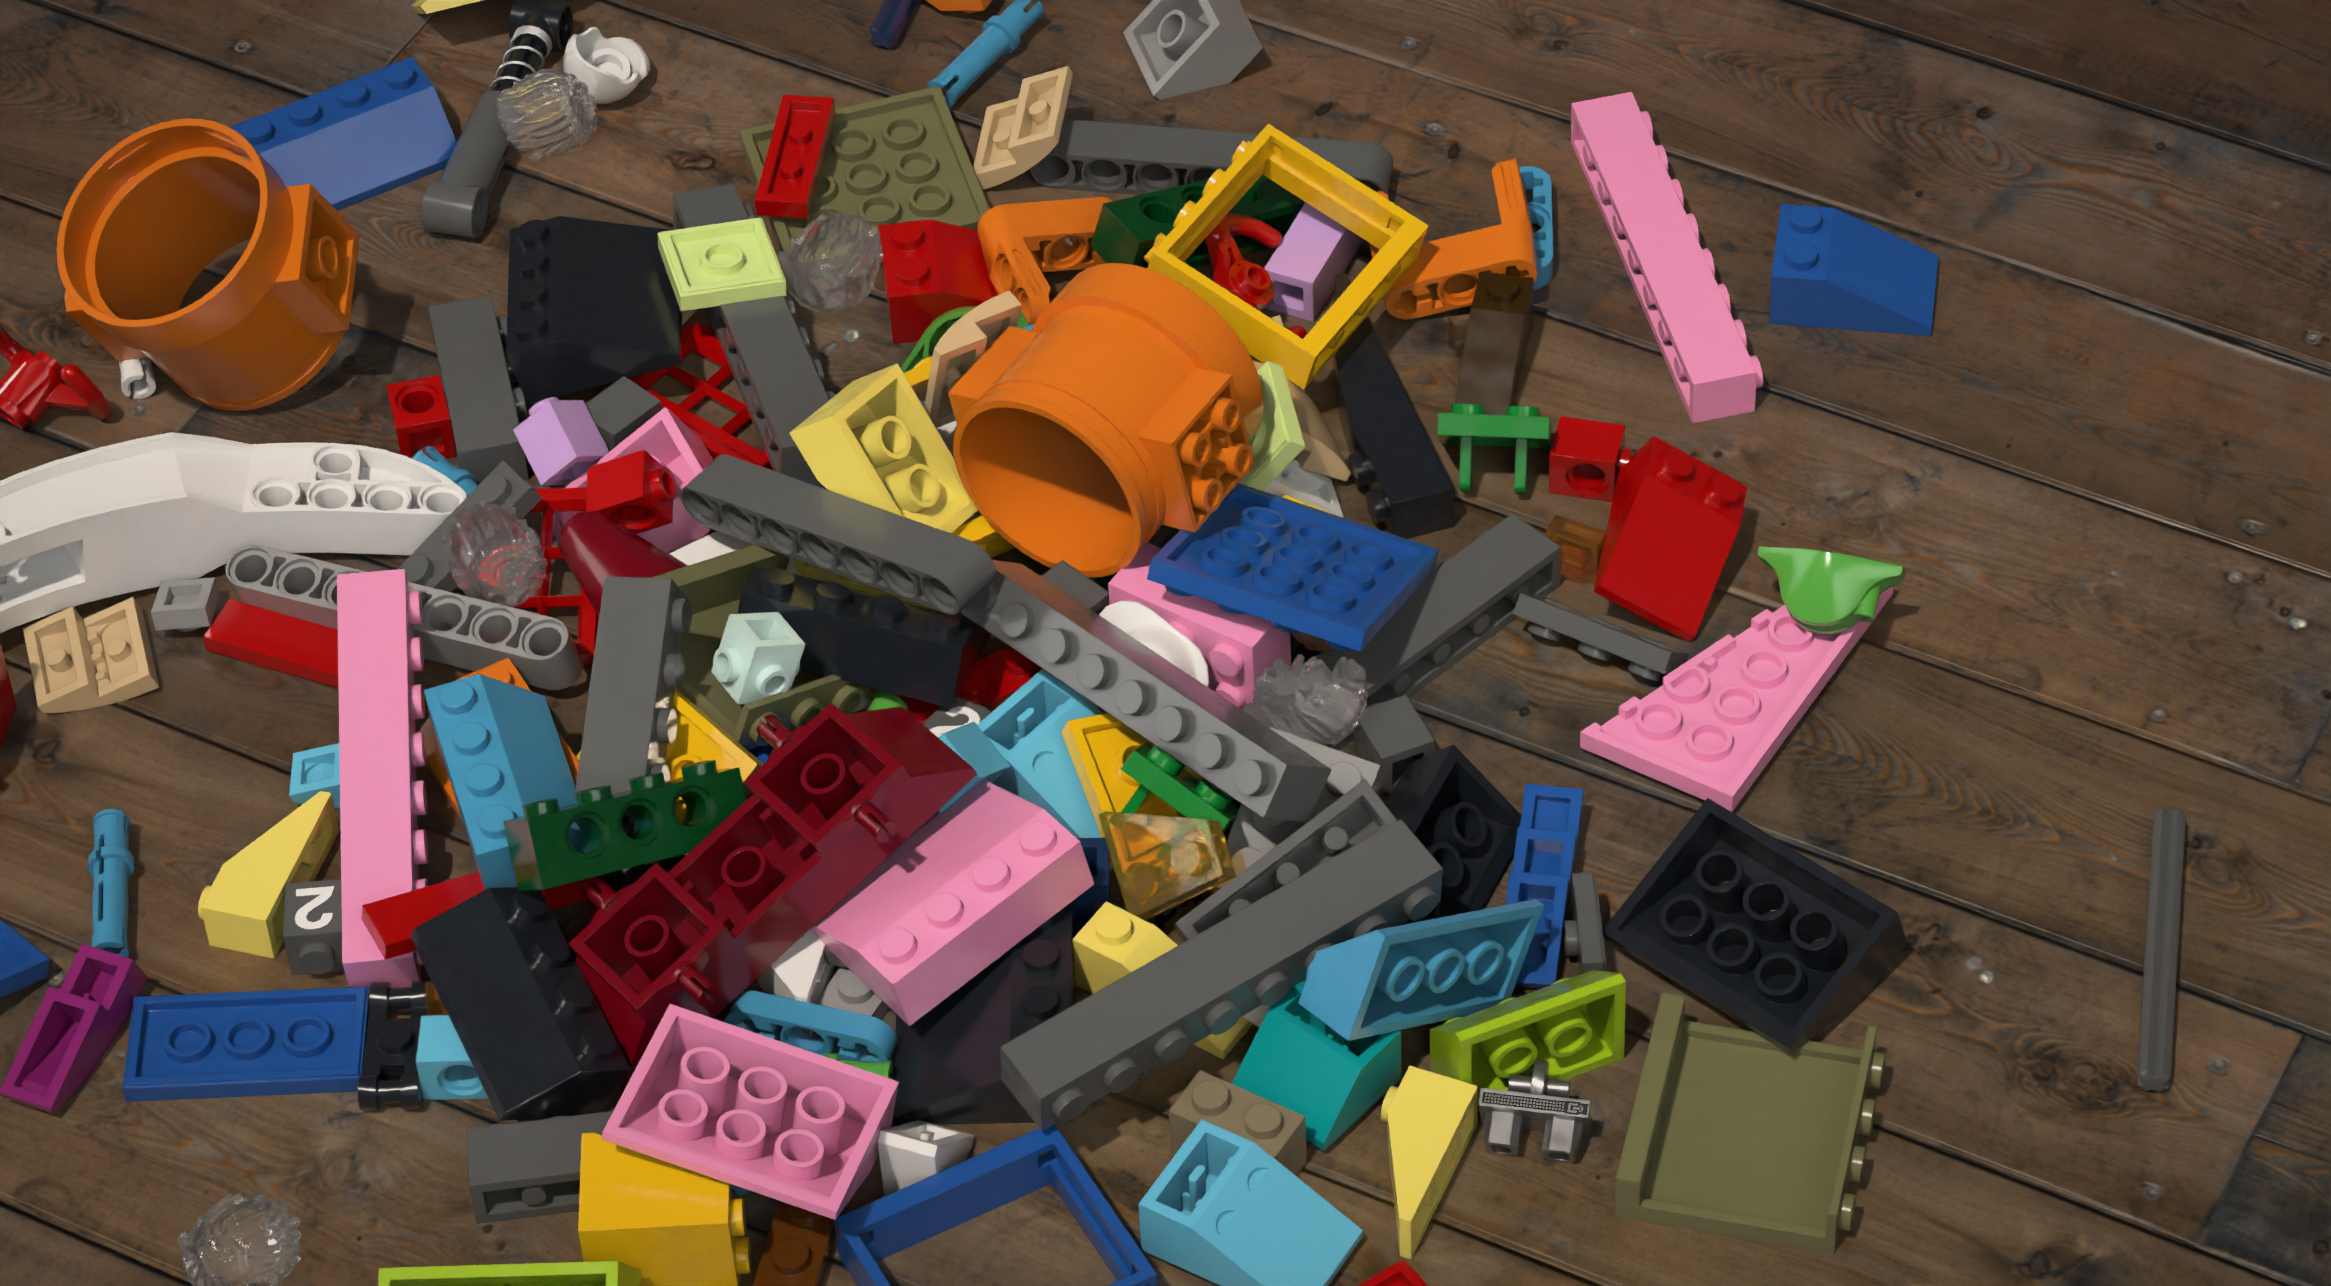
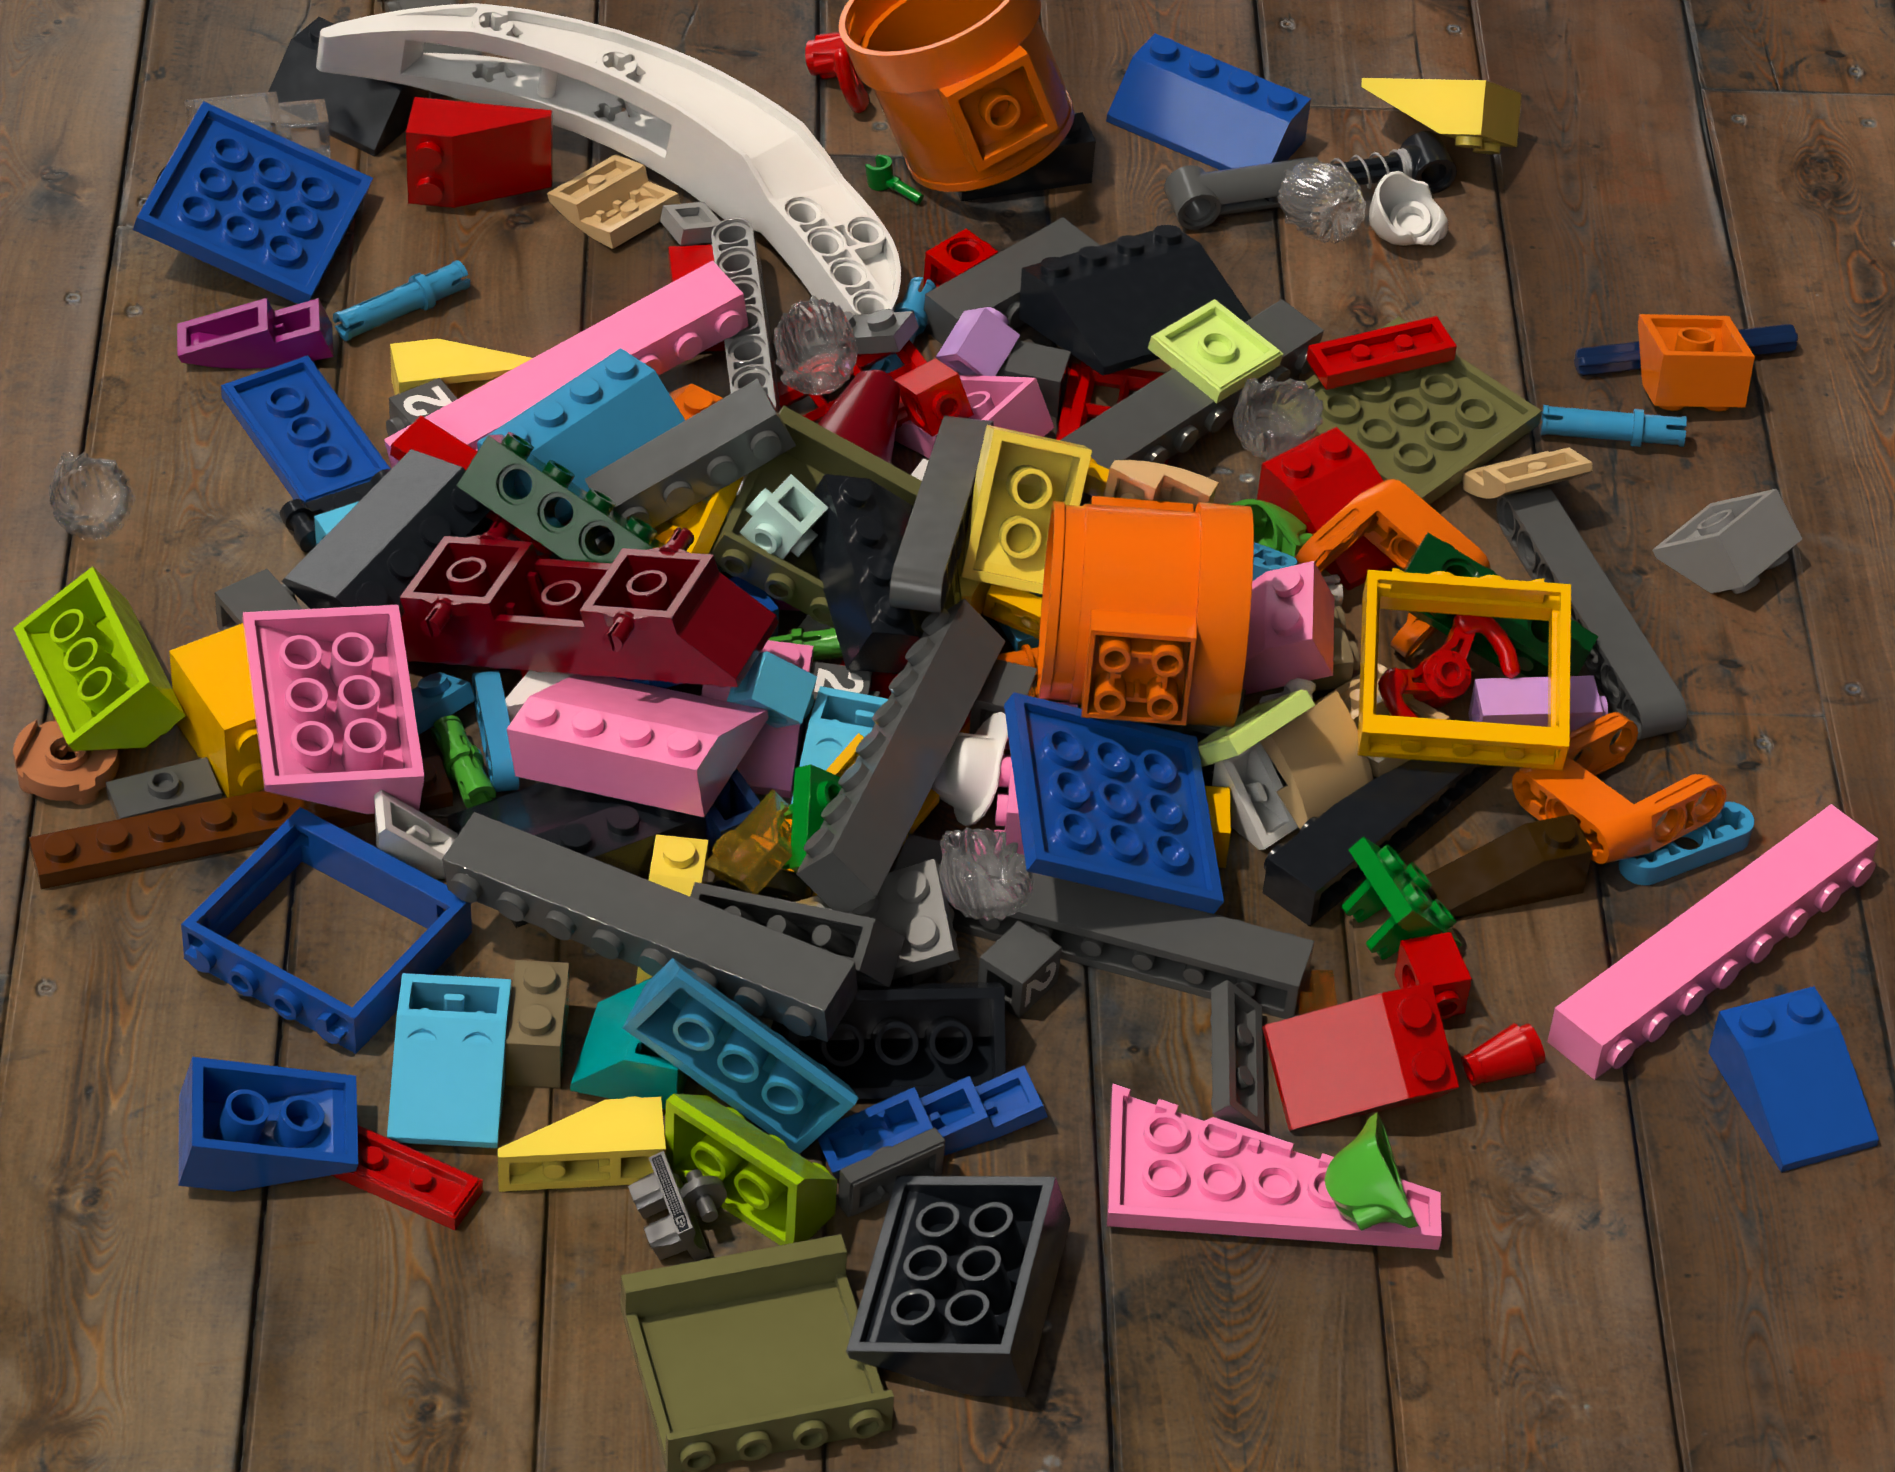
camera: 55 degrees right, 0 degrees up
(220, 424) = (882, 178): none -> green hand
(1708, 438) = (1505, 1055): none -> red cone

